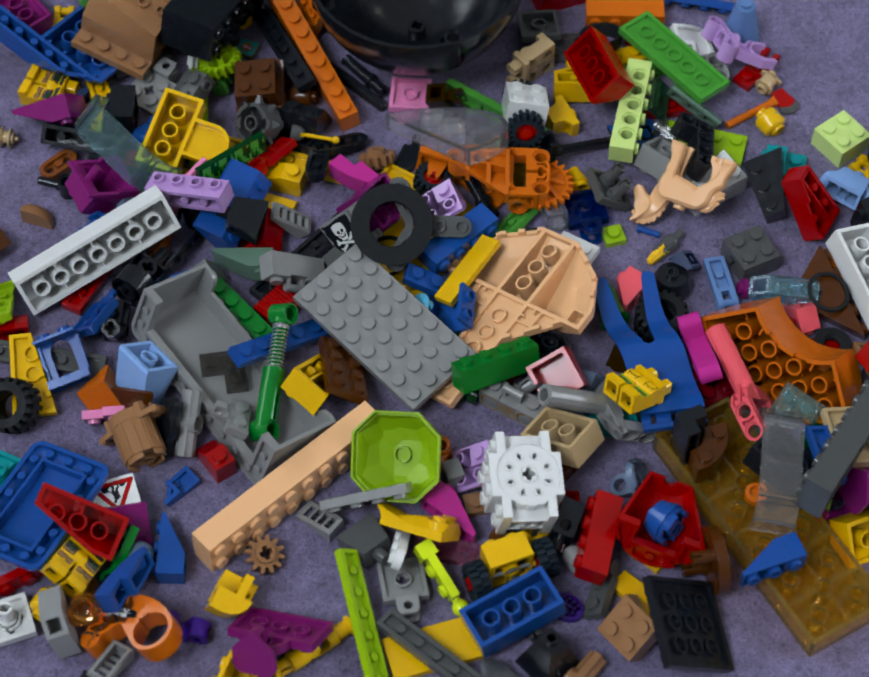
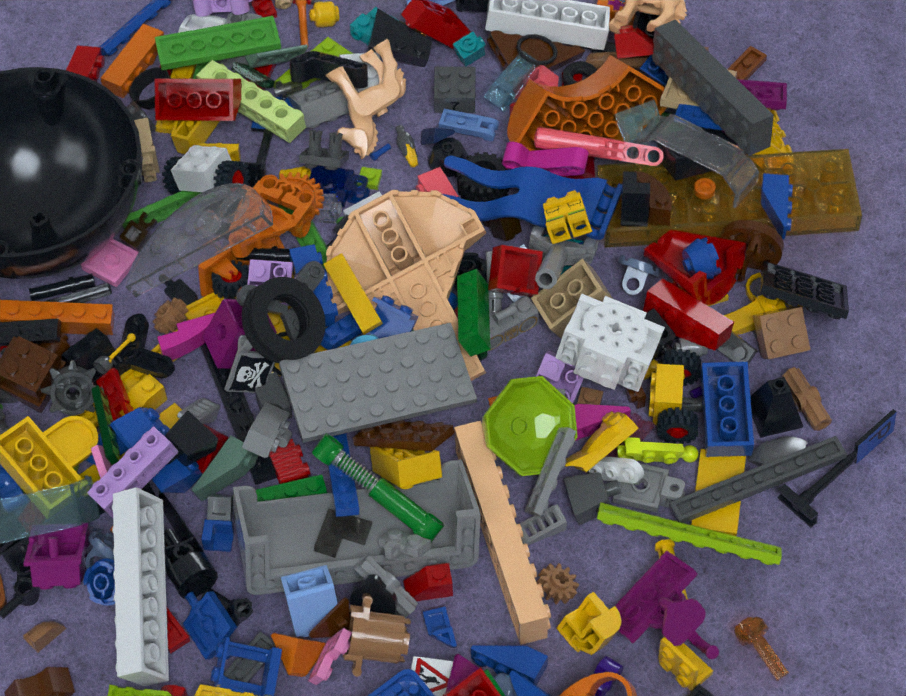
camera: 60 degrees left, 0 degrees up
(742, 288) = (485, 109): magenta plate -> none
(803, 244) = (469, 48): none -> teal brick

